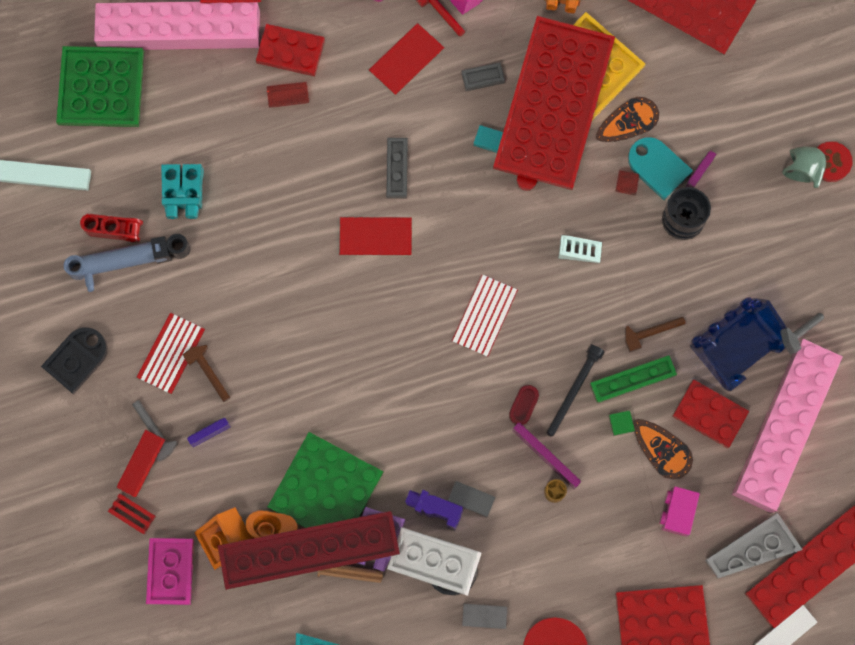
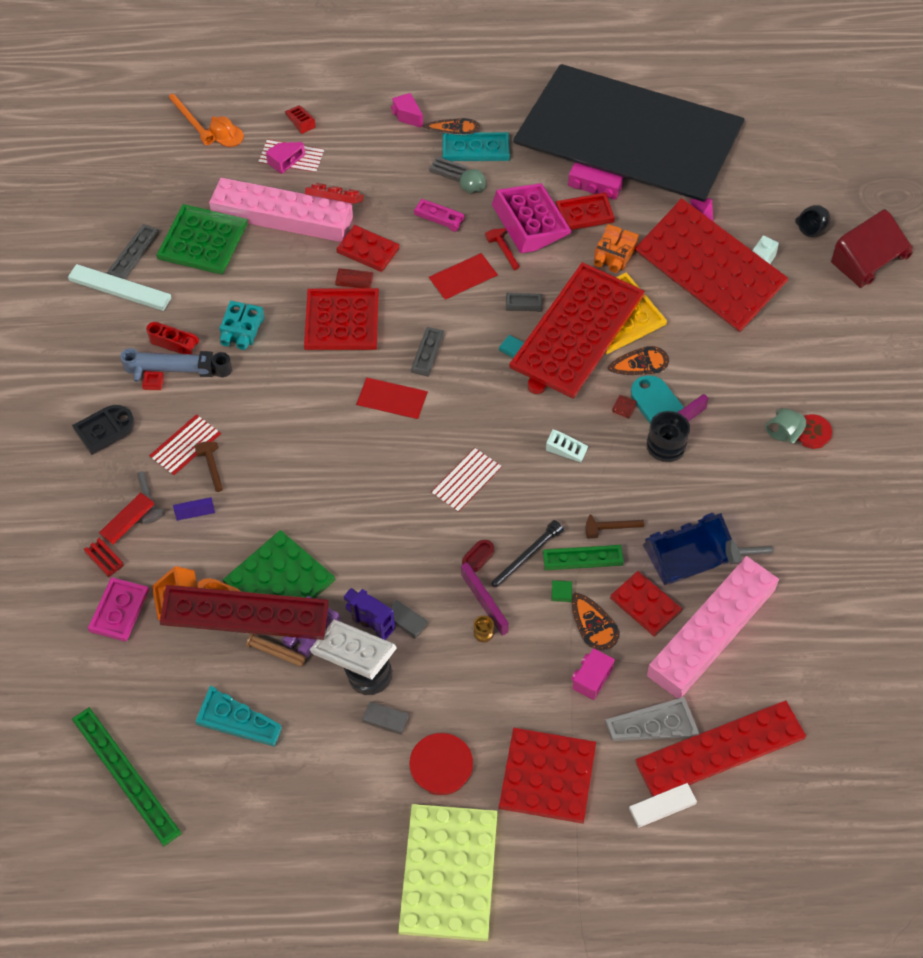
camera: 15 degrees right, 20 degrees down
(27, 123) = (133, 252): none -> dark grey tile
(108, 284) = (152, 380): none -> red tile
(291, 152) = (341, 319): none -> red plate

